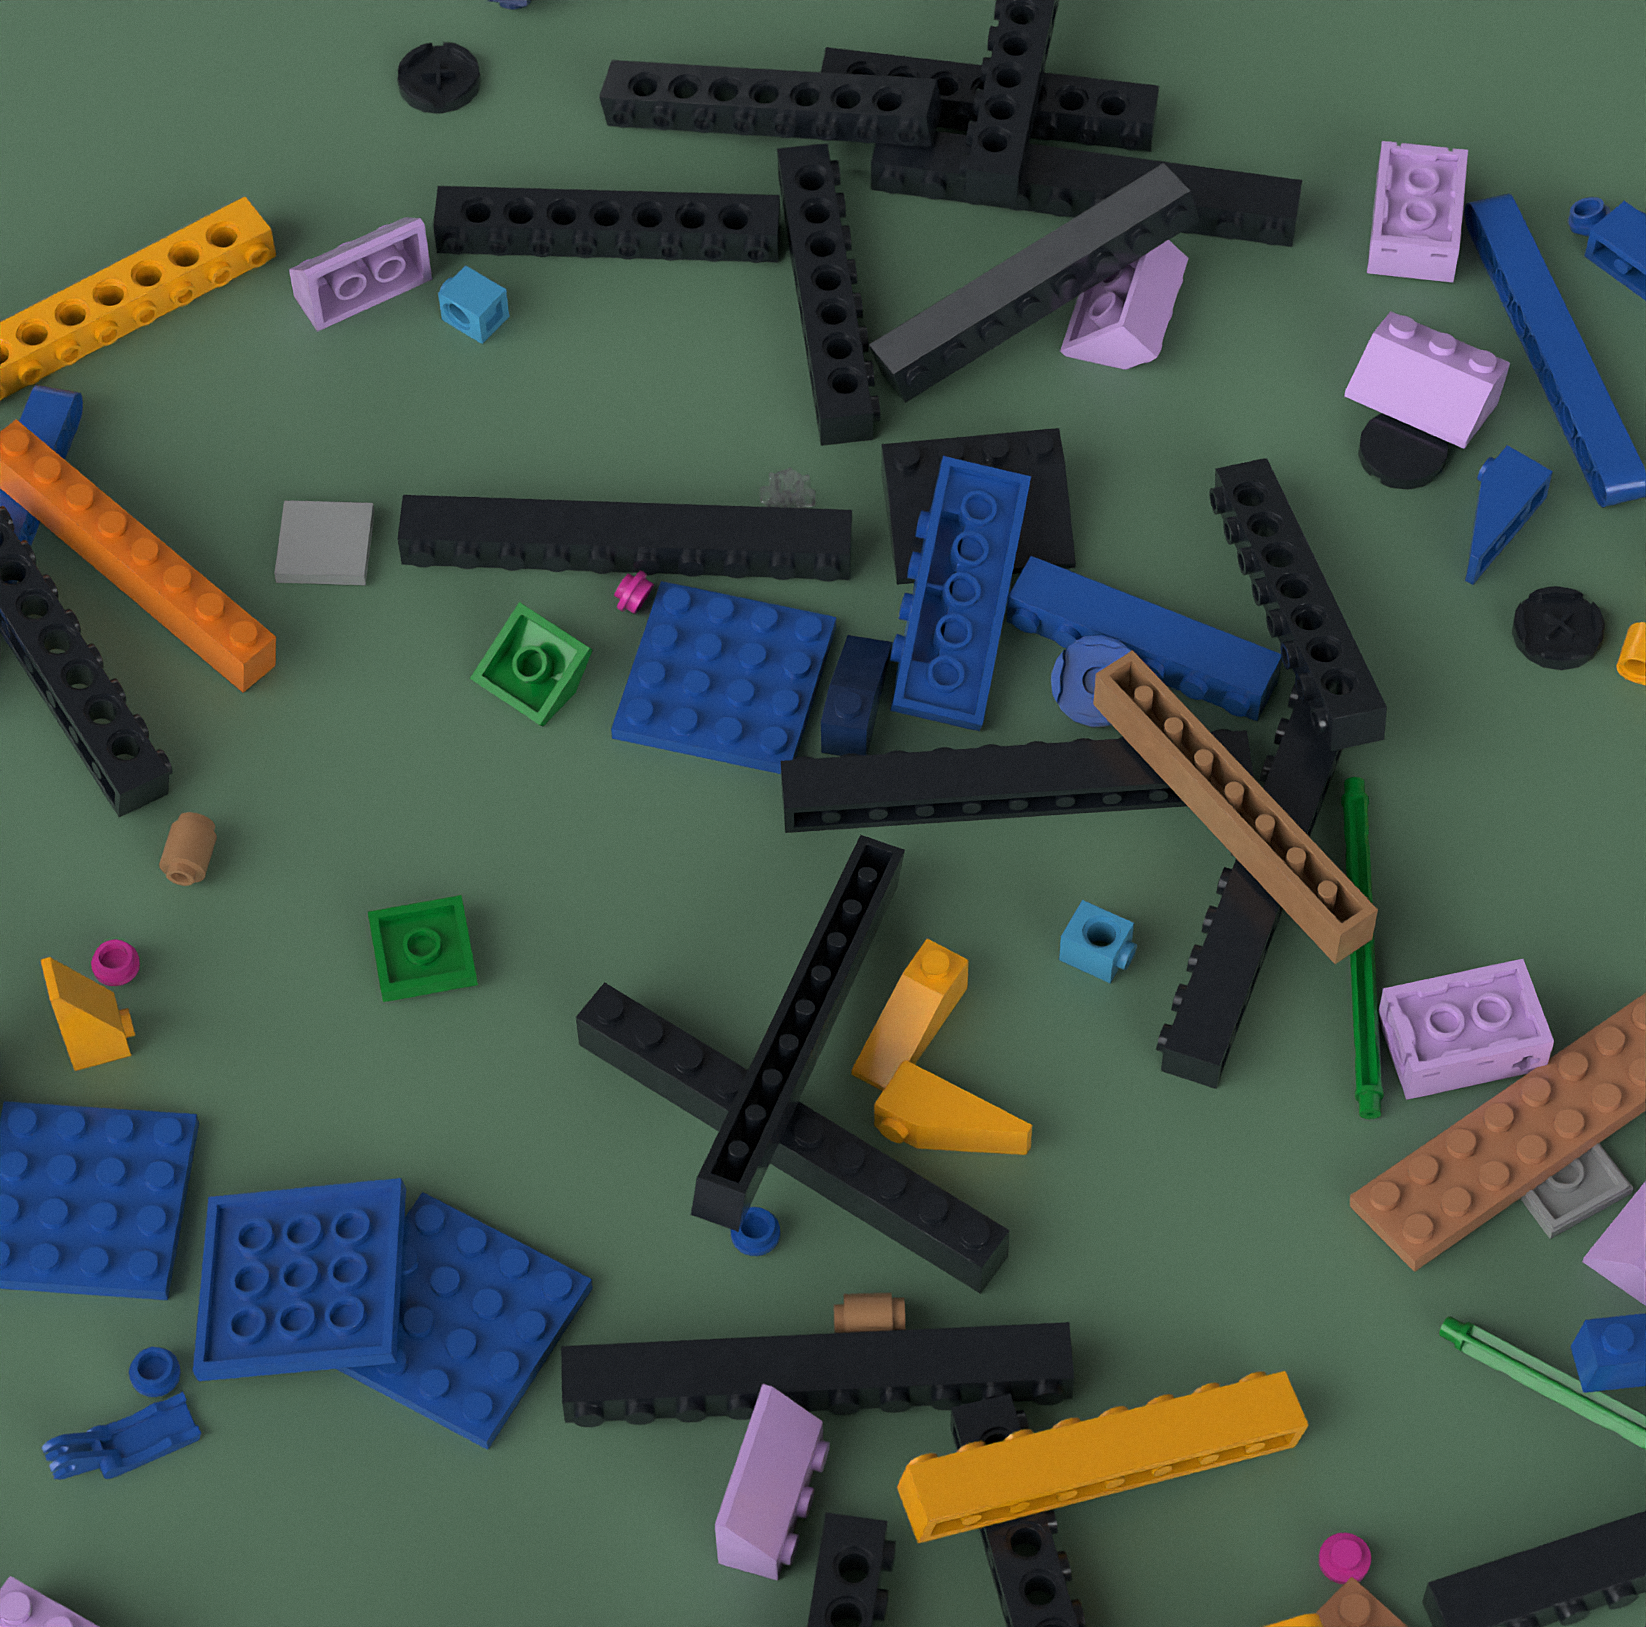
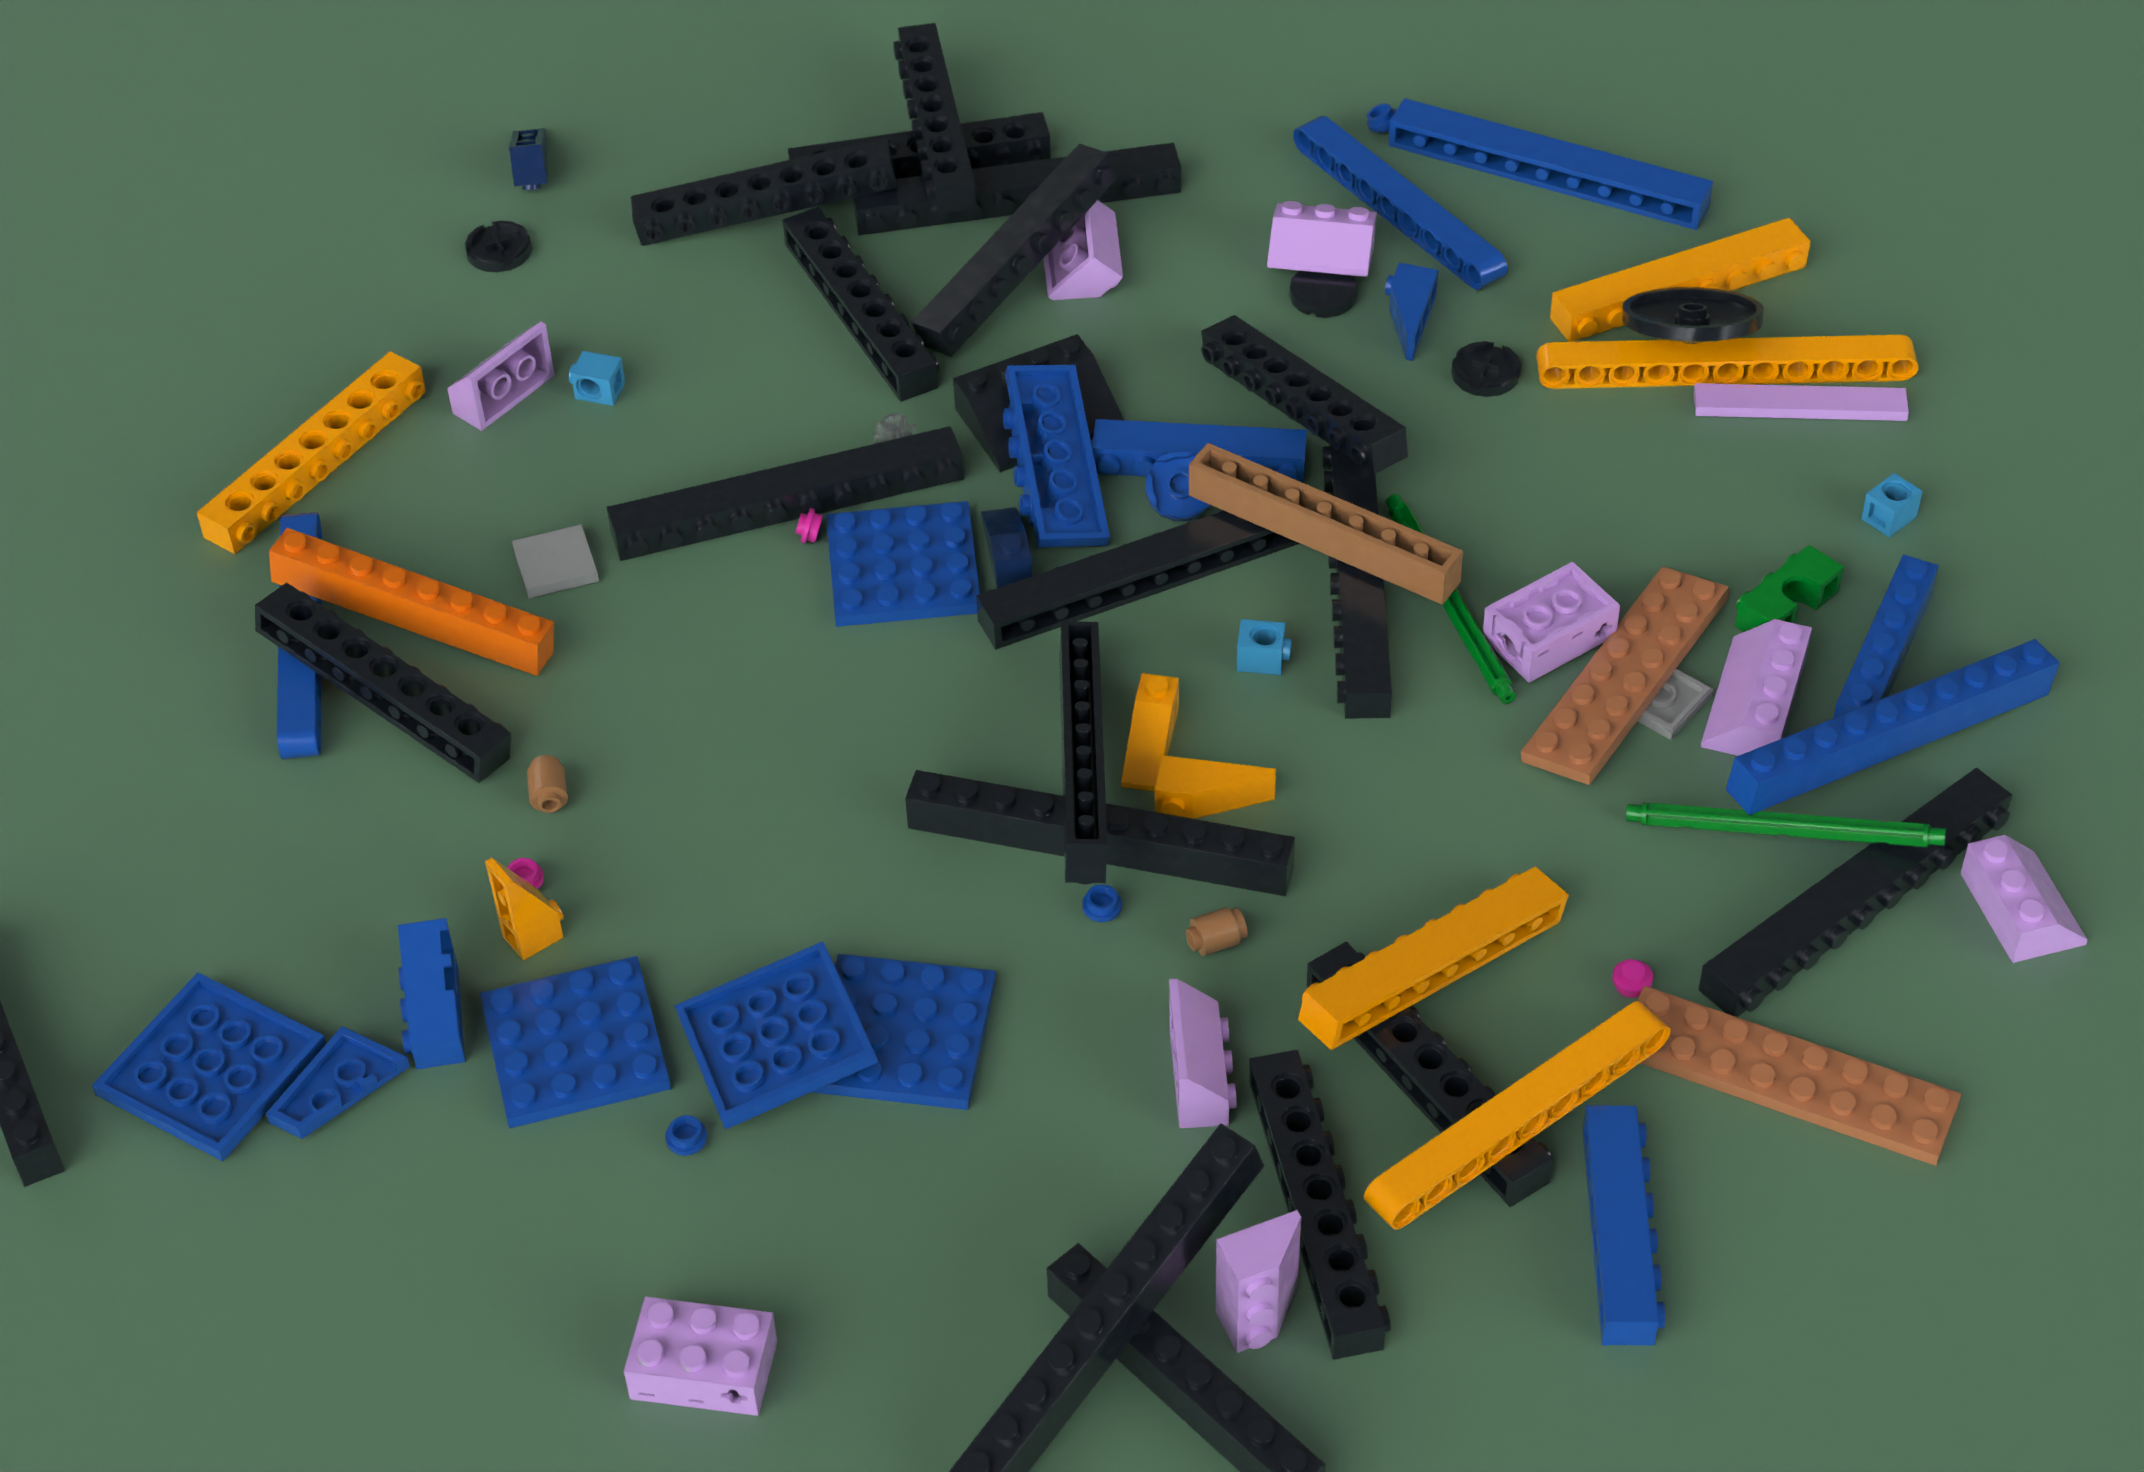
camera: 20 degrees left, 10 degrees down
(124, 1443) = (686, 1191): blue arm -> none
(422, 948) = (760, 797): green plate -> none
(533, 665) = (756, 592): green slope -> none
(607, 224) = (676, 301): black brick -> none
(816, 1372) = (1218, 967): black brick -> none
(1417, 211) = (1263, 142): lavender piece -> none

